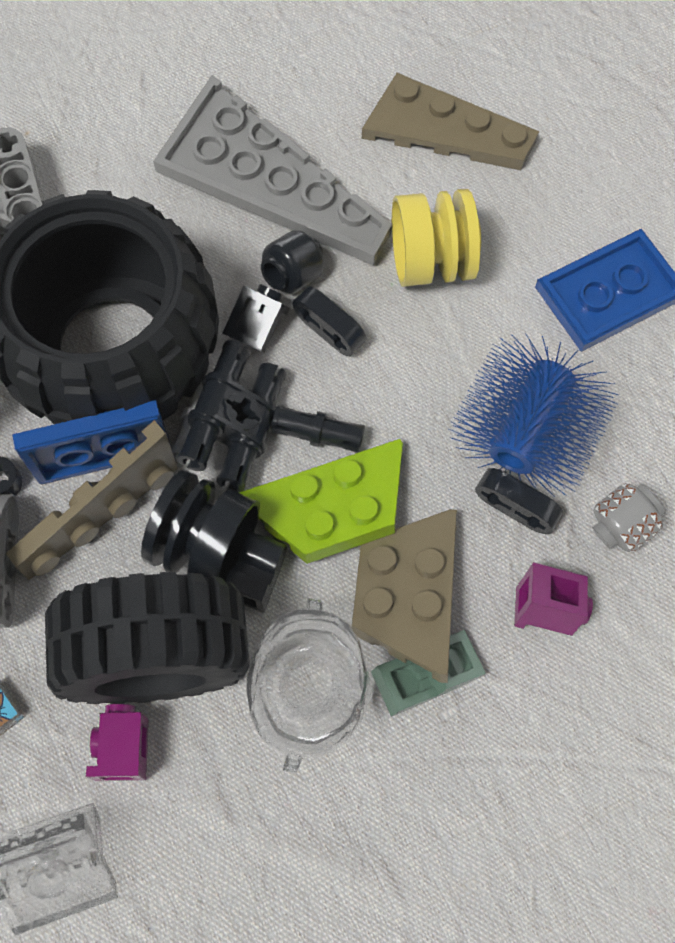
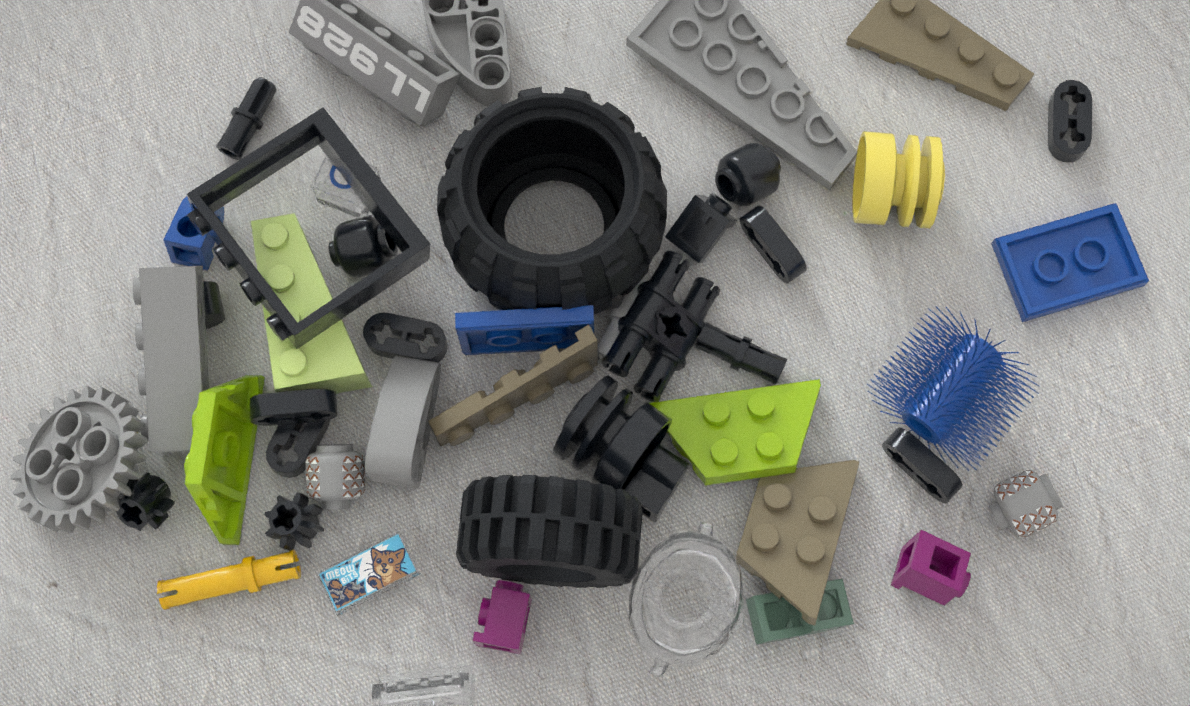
camera: 15 degrees right, 5 degrees up
(572, 167) = (1079, 121): none -> black beam

